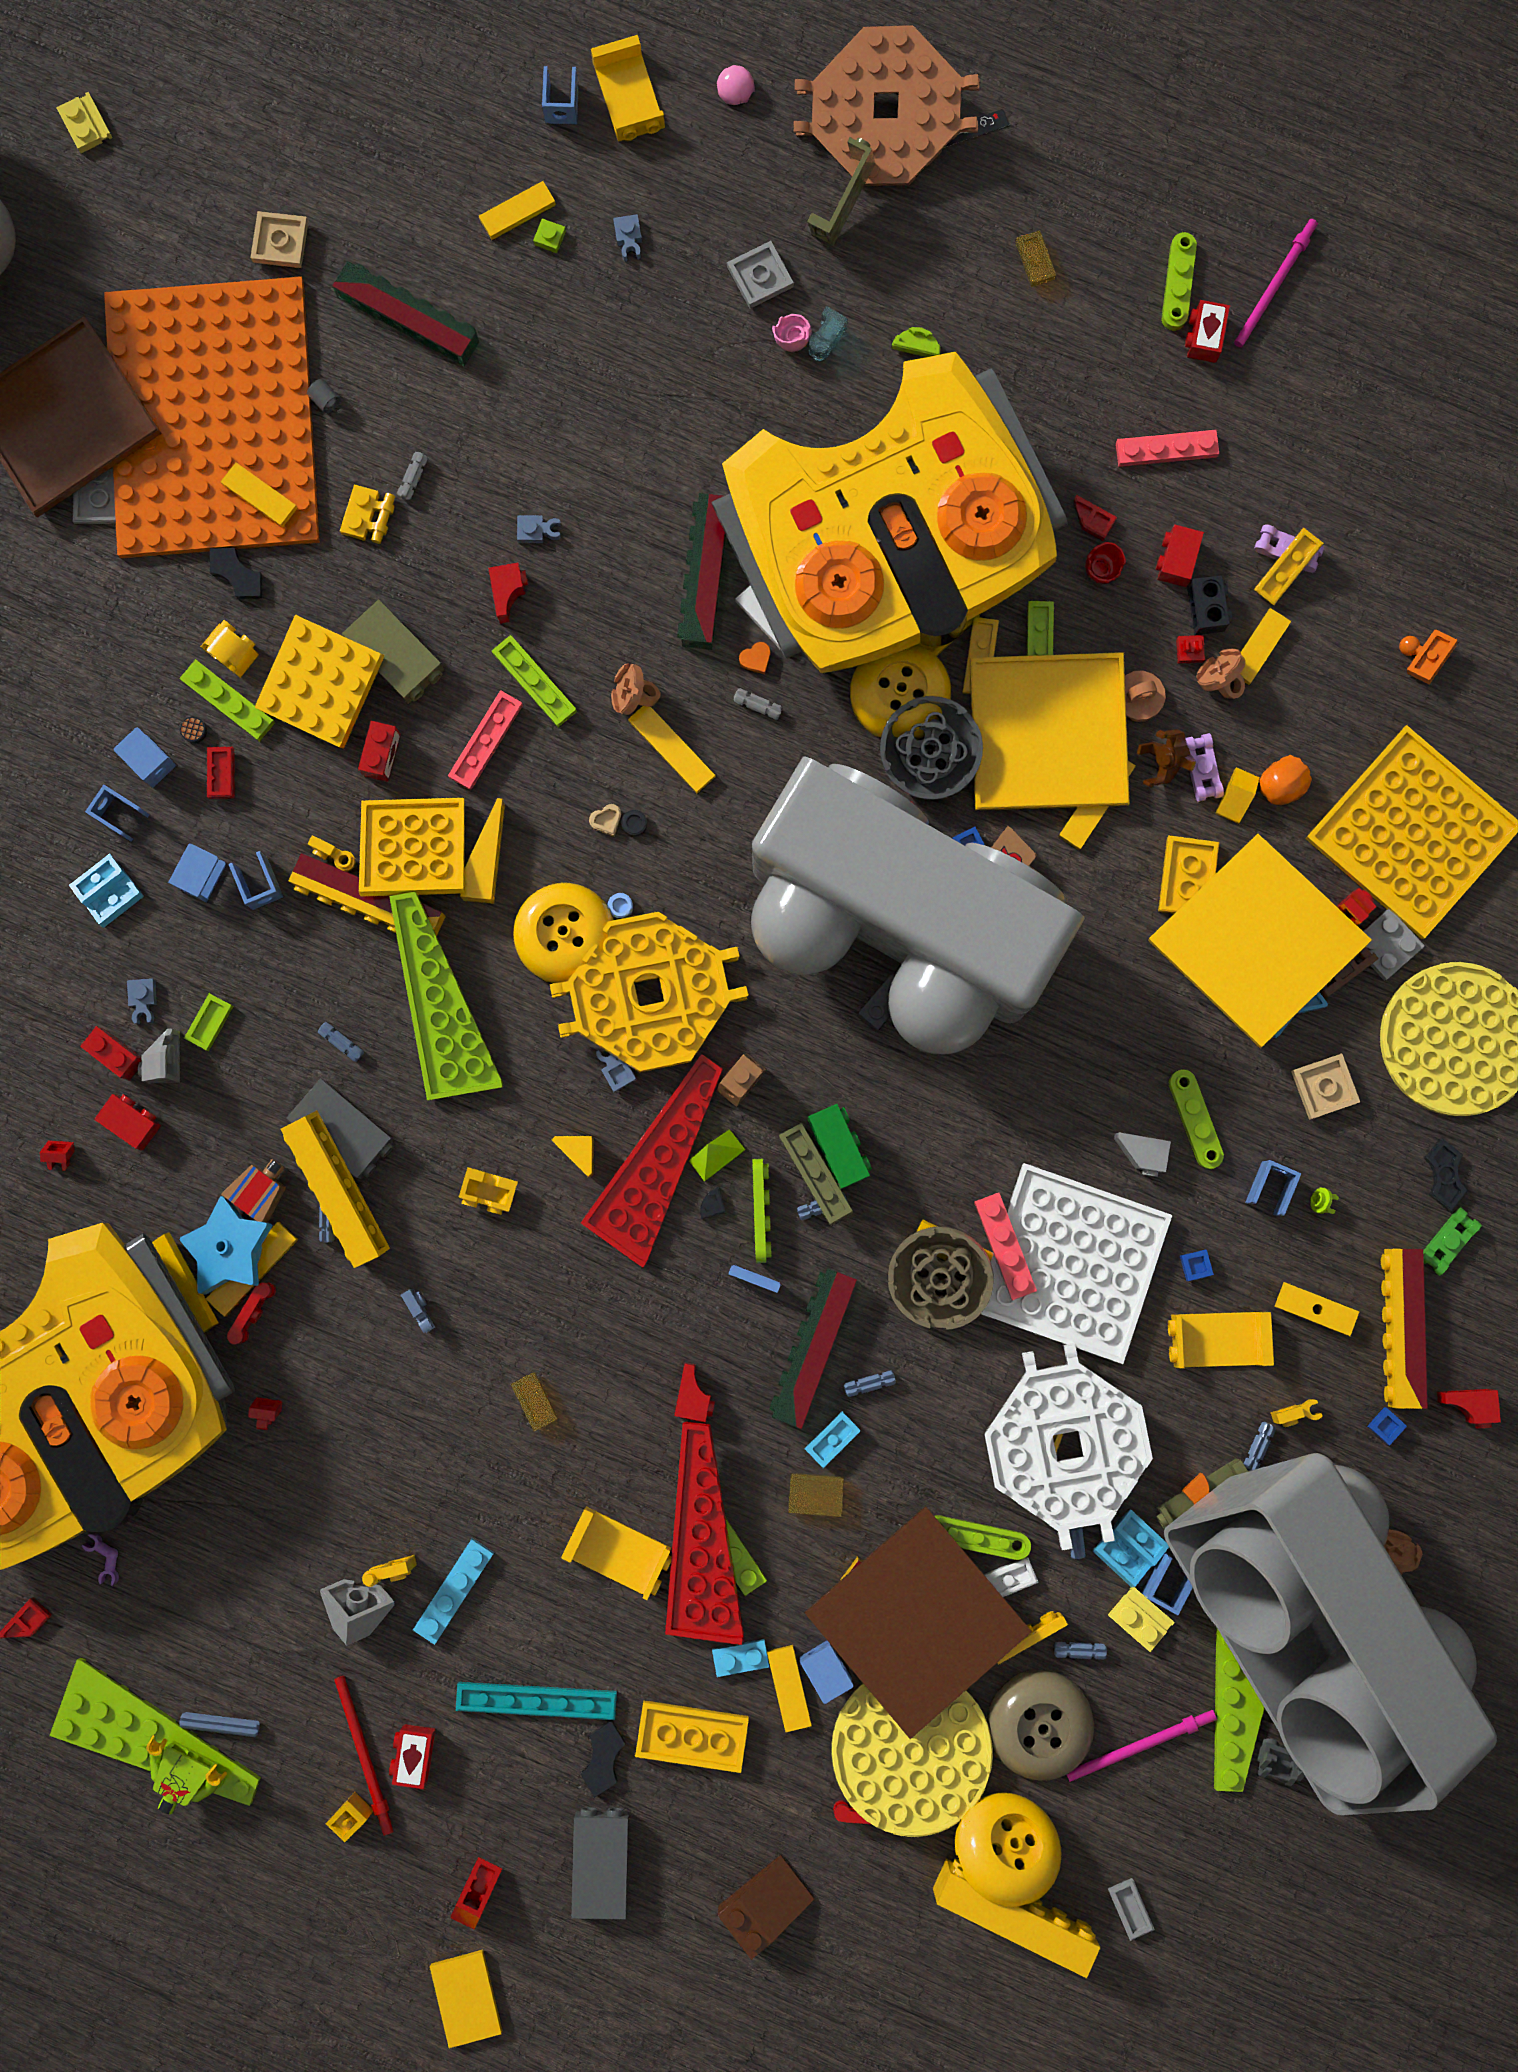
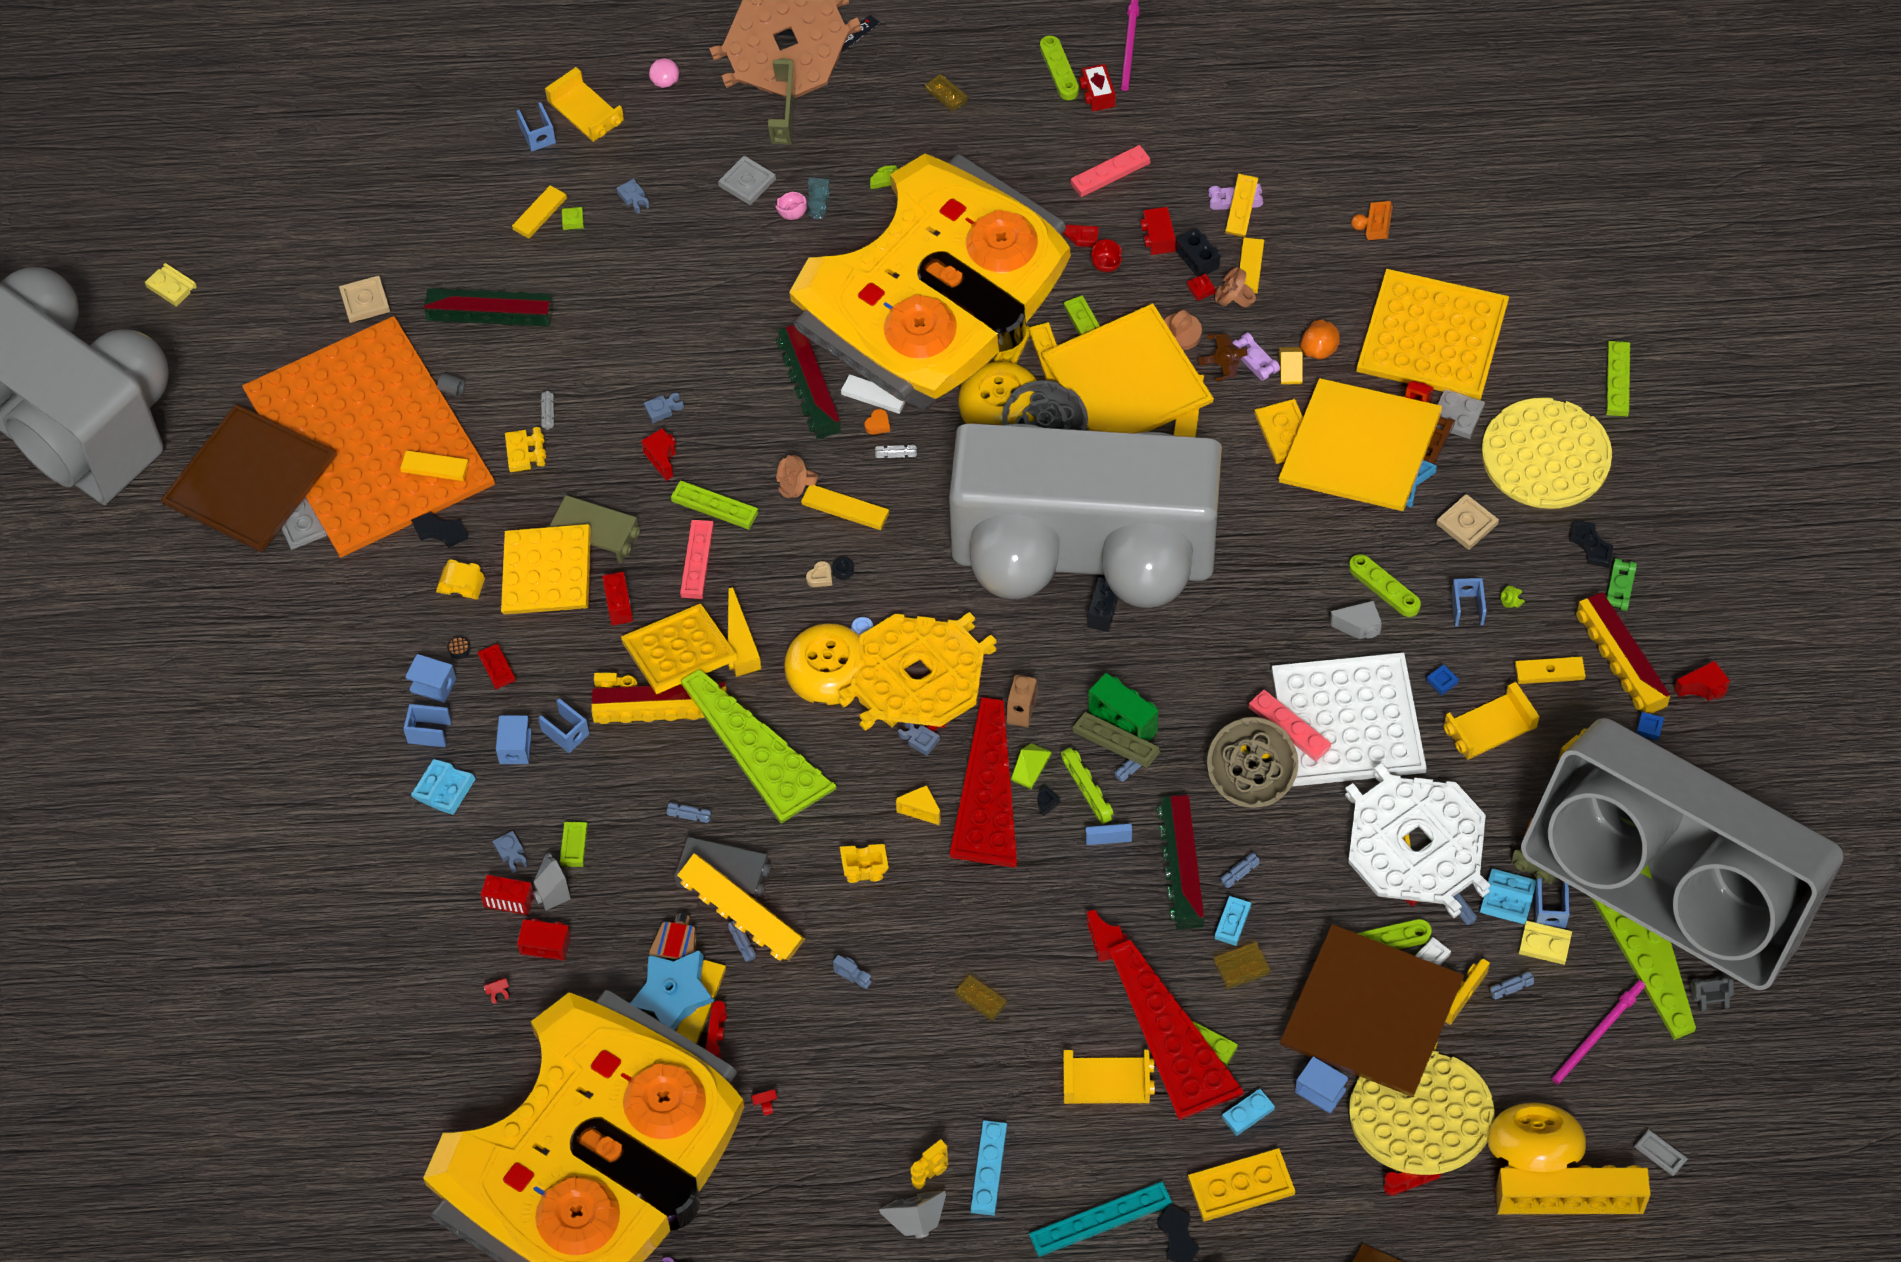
camera: 25 degrees left, 25 degrees down
(227, 700) = (476, 617): lime plate -> none
(789, 1688) = (1299, 1116): yellow tile -> none
(1043, 1693) = (1527, 1074): dark tan brick -> none

